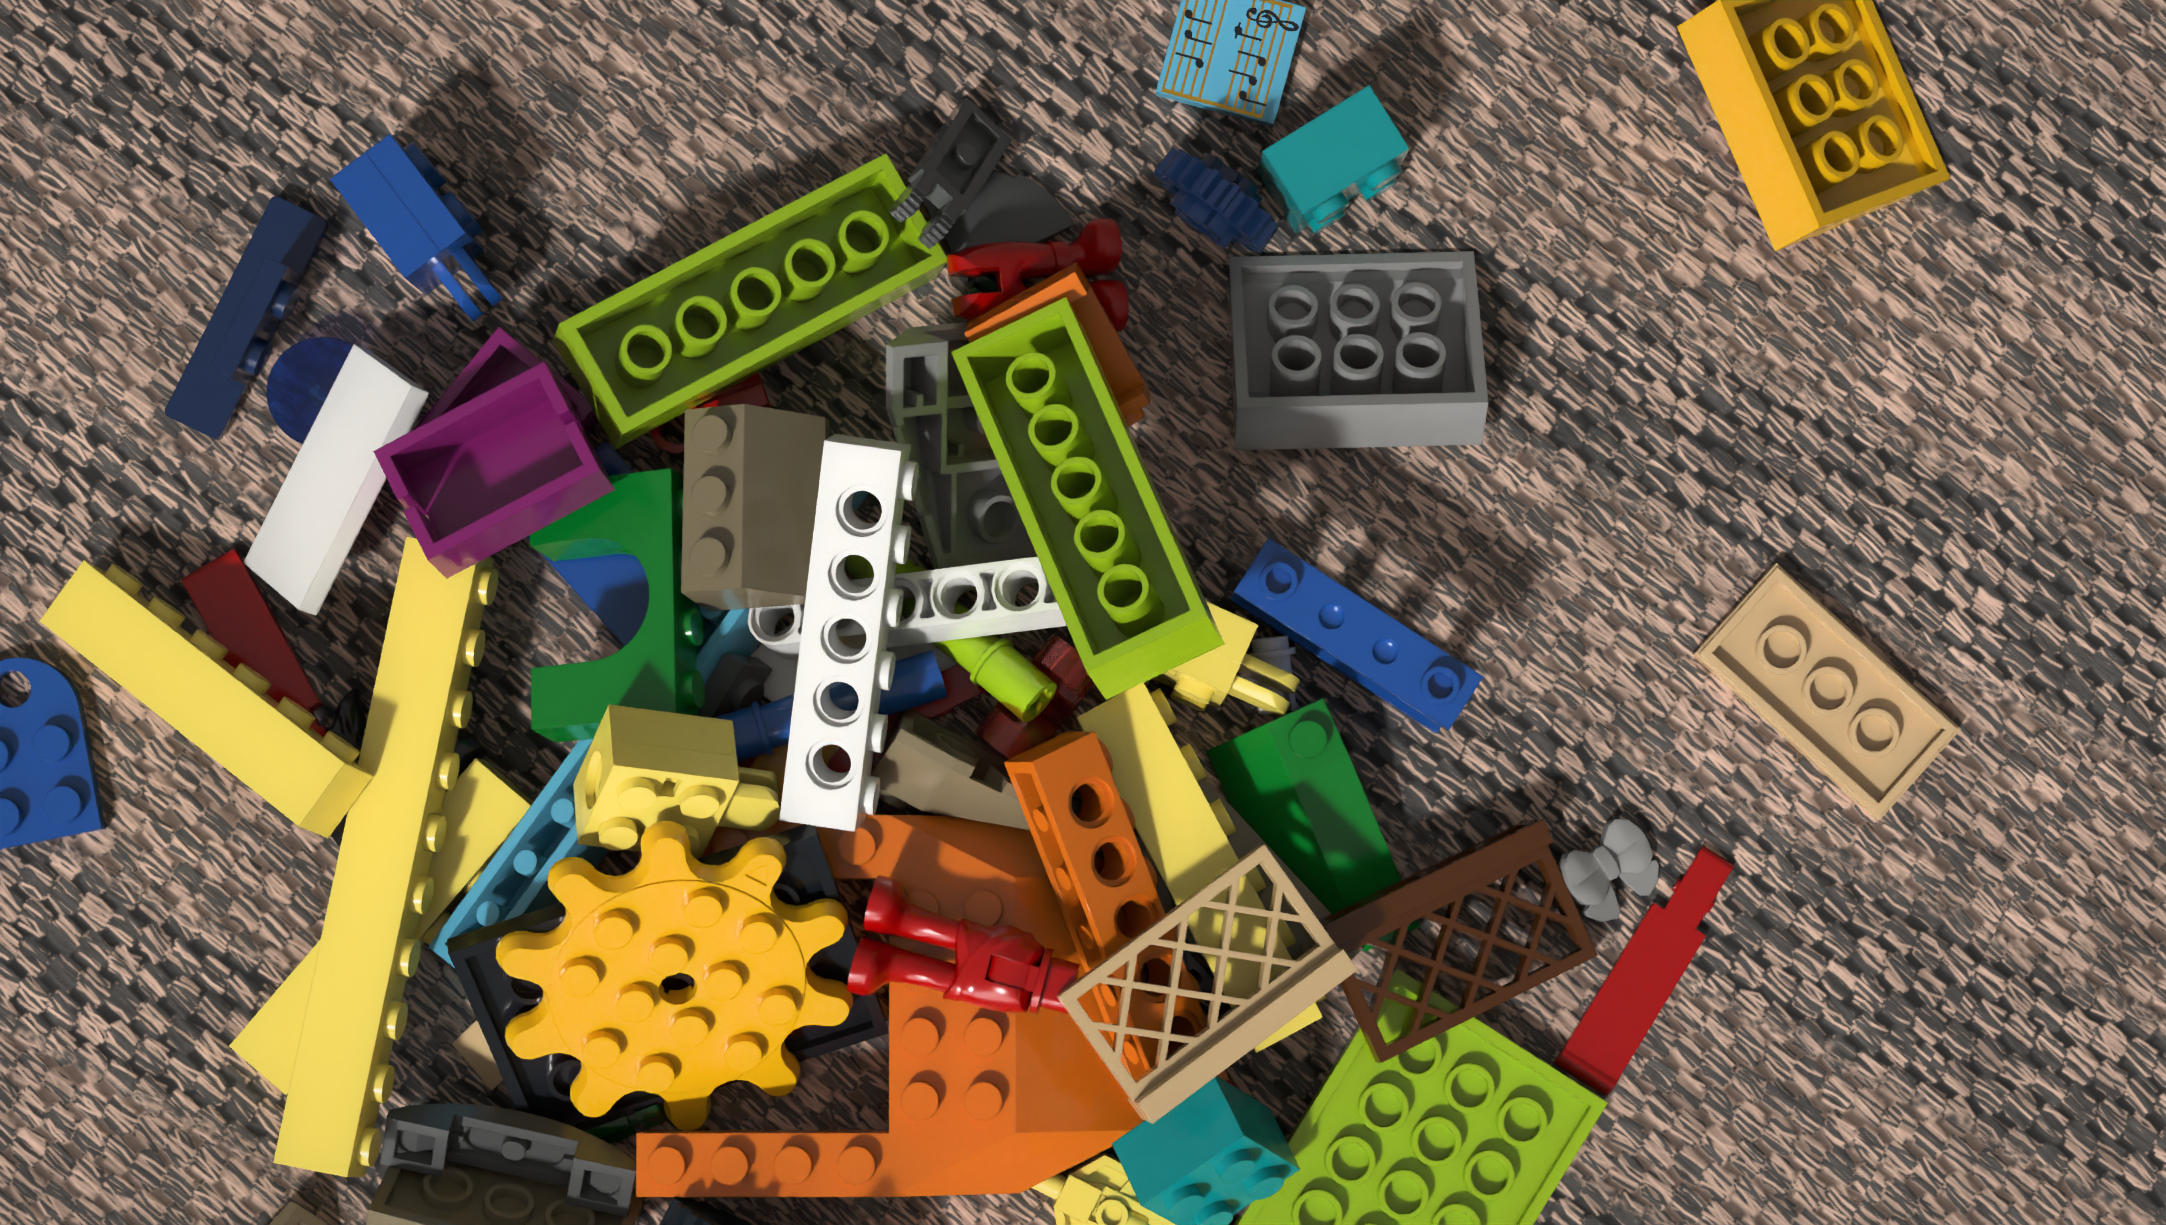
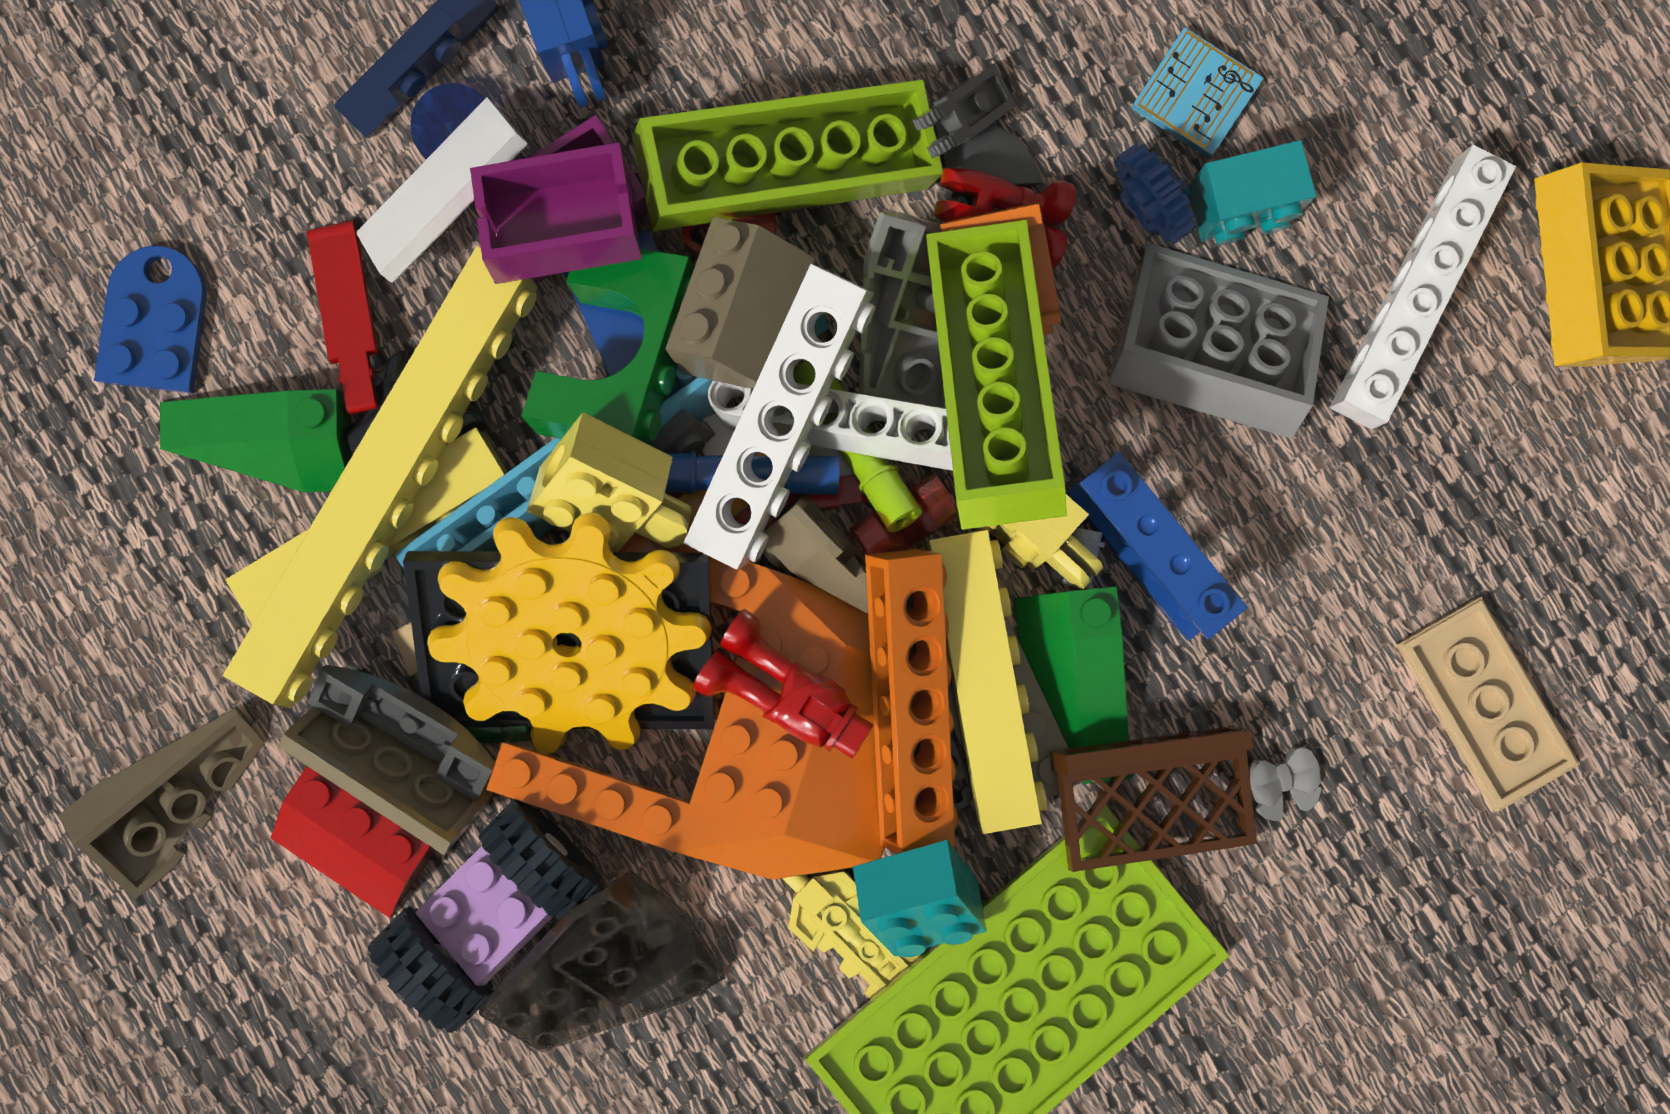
camera: 20 degrees right, 0 degrees up
(206, 698) = (292, 319): light yellow brick -> none
(207, 856) = (271, 436): none -> green wedge
(1239, 1028) = (972, 814): tan fence -> none
(1582, 207) = (1422, 287): none -> white brick
(1643, 977) = (1283, 870): red piece -> none

